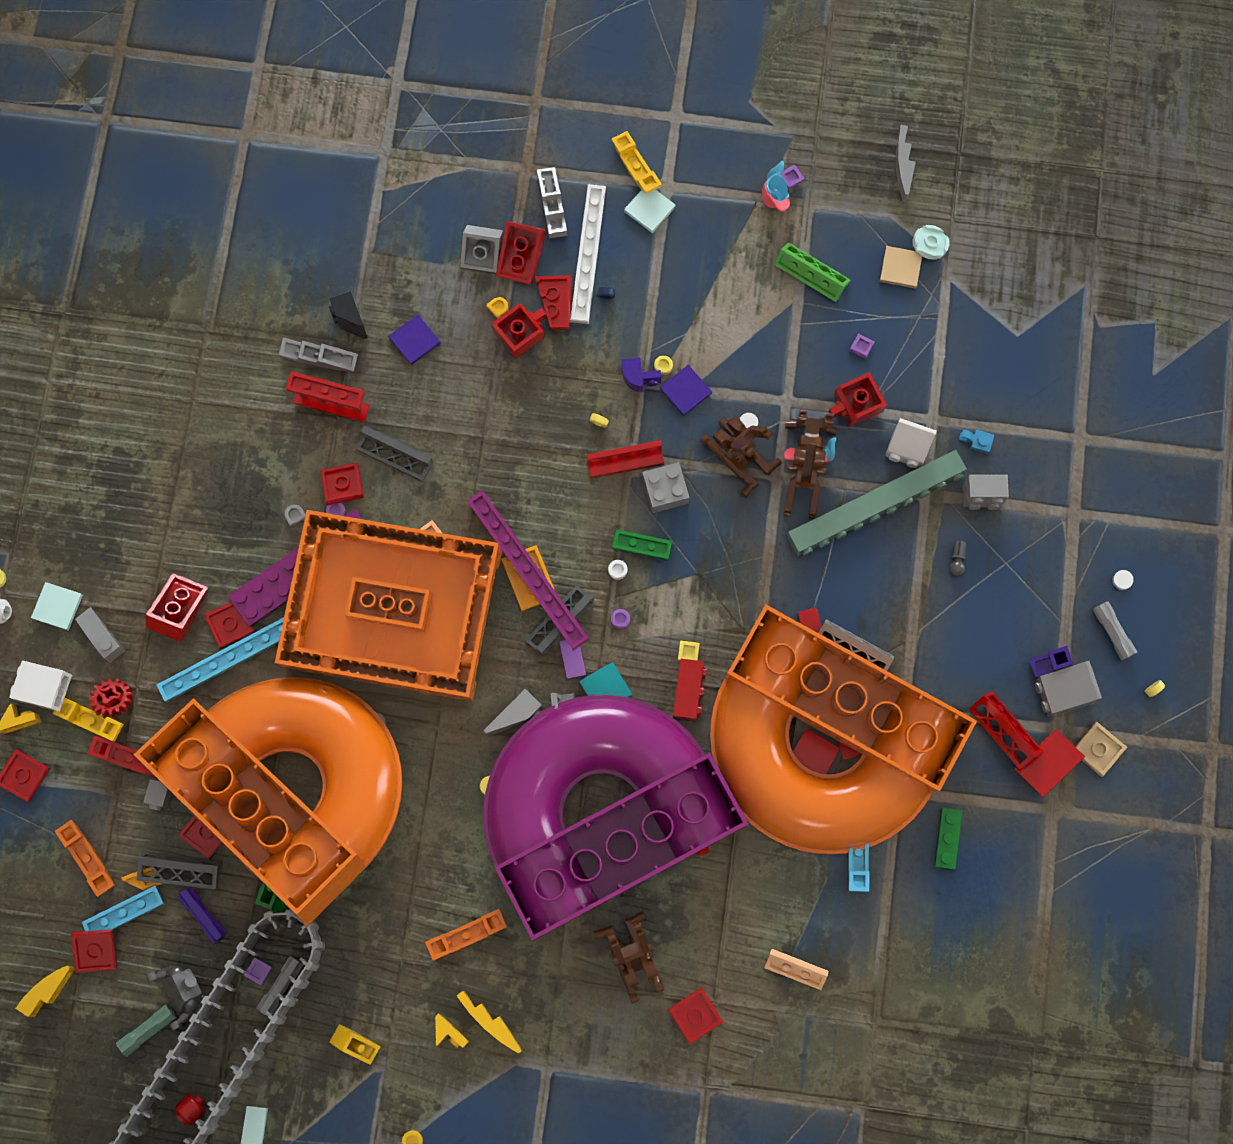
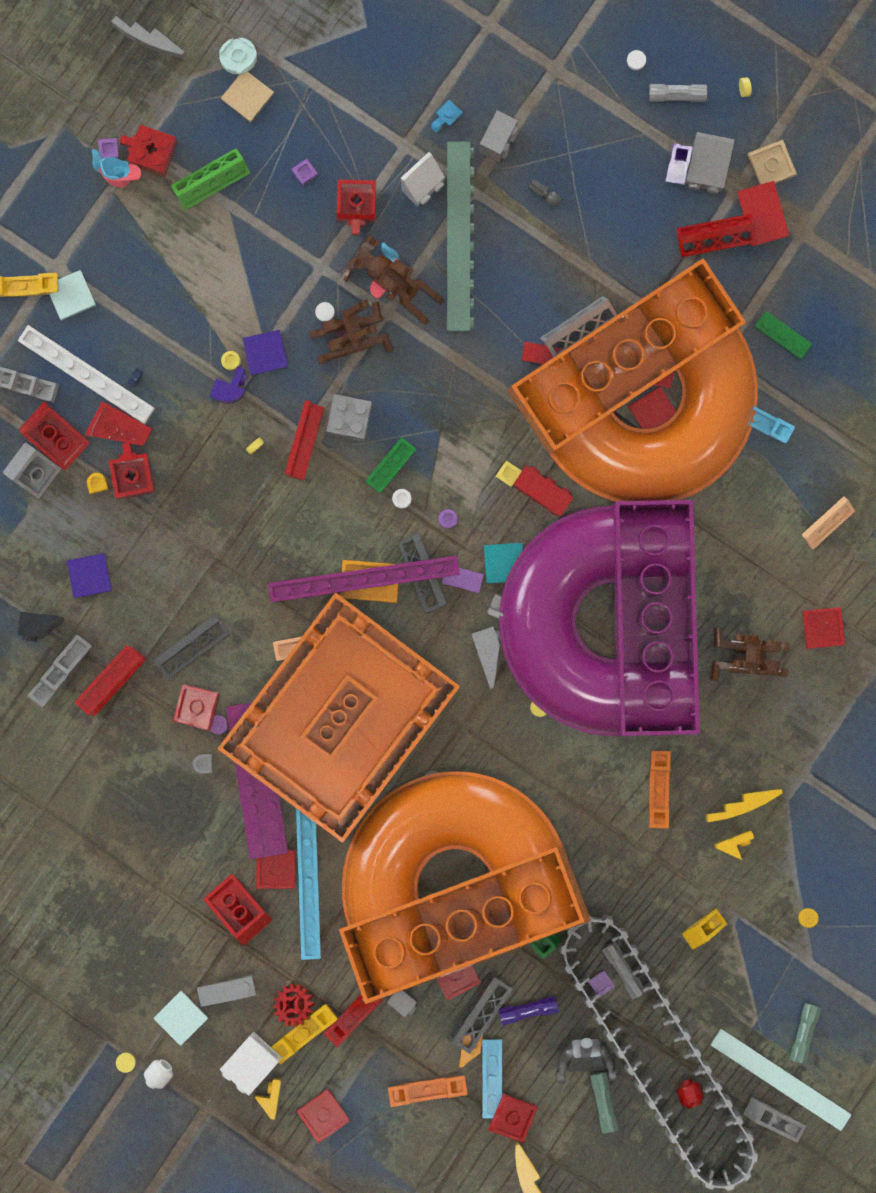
camera: 60 degrees left, 10 degrees up
(805, 202) = (146, 140): none -> red hinge

